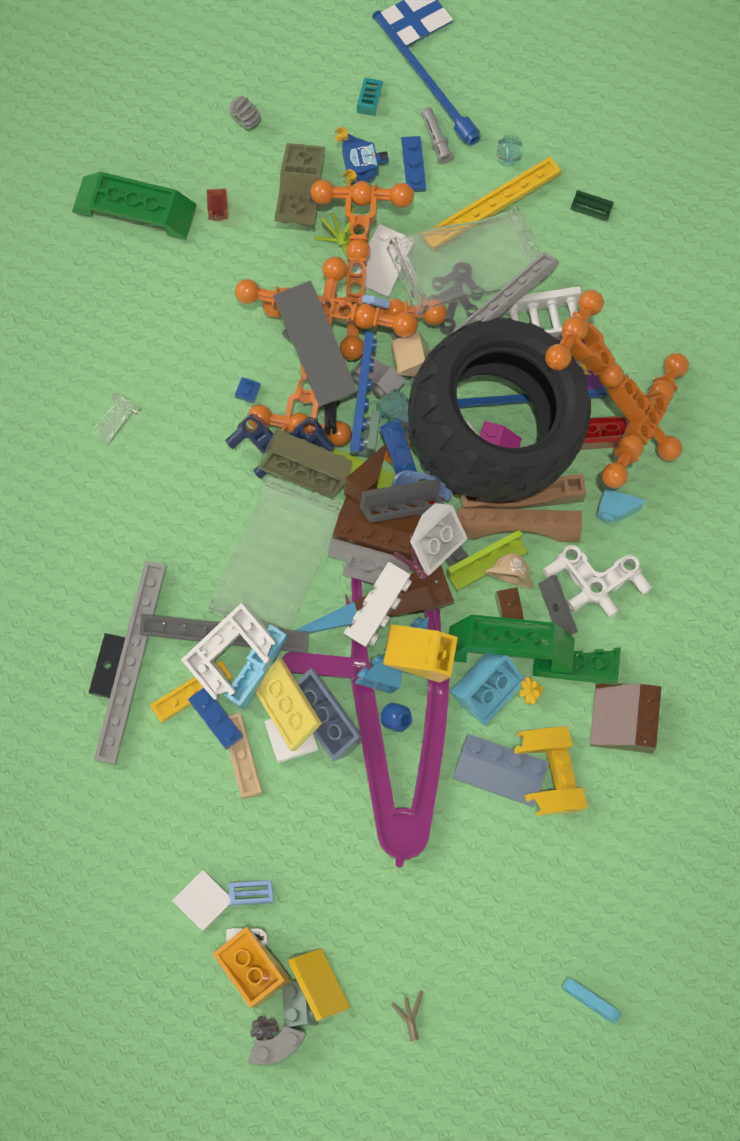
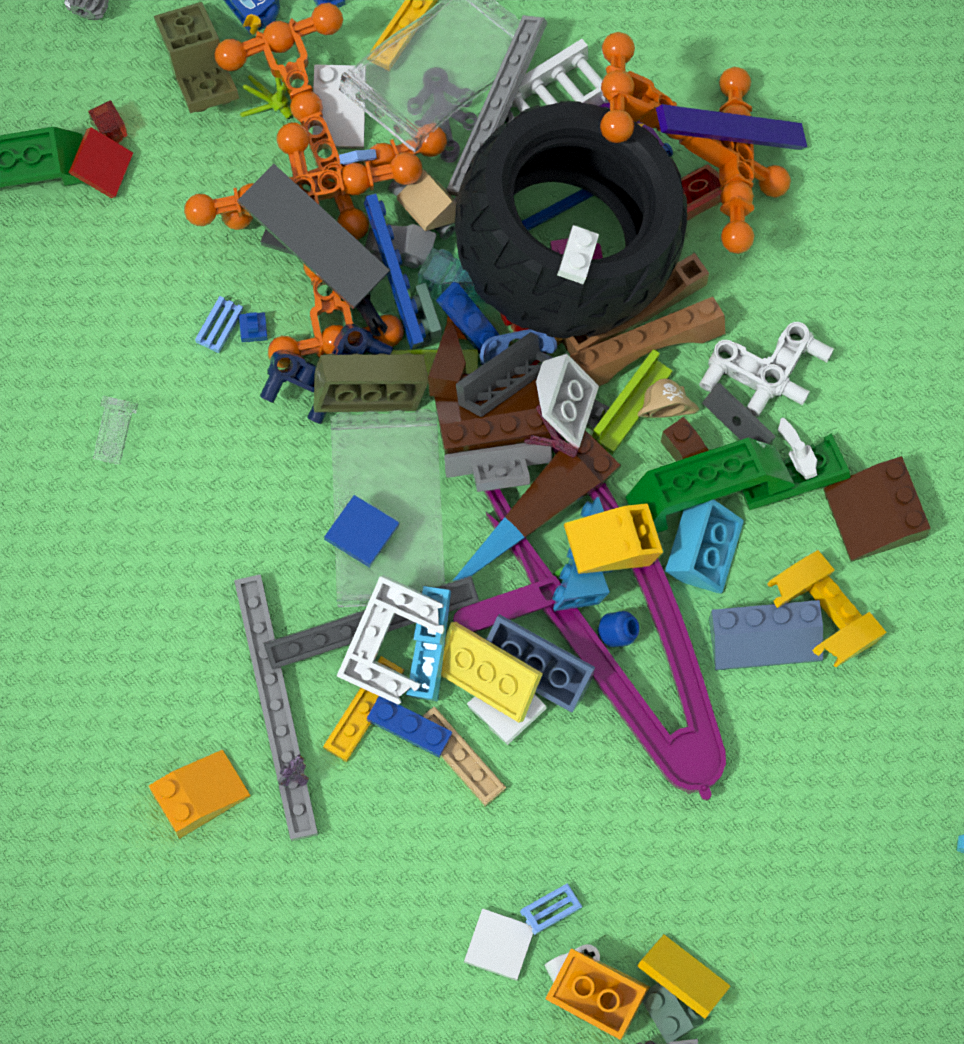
camera: 25 degrees left, 0 degrees up
(48, 697) = (198, 792): none -> light orange slope
(109, 653) = (248, 708): black tile -> none
(118, 714) = (294, 772): none -> clear purple plant
(198, 229) = (101, 162): none -> red tile
(220, 372) = (229, 305): none -> light blue tile
(248, 566) = (361, 531): none -> blue tile
(378, 605) = (538, 508): white wedge -> none
(410, 1018) = (804, 960): dark tan plant -> none
(482, 436) = (578, 254): none -> white plate
(532, 690) = (755, 529): yellow plant -> none
(589, 654) = (802, 454): none -> white piece
(618, 506) = (748, 273): medium azure slope -> none
(650, 395) = (730, 127): none -> dark purple tile

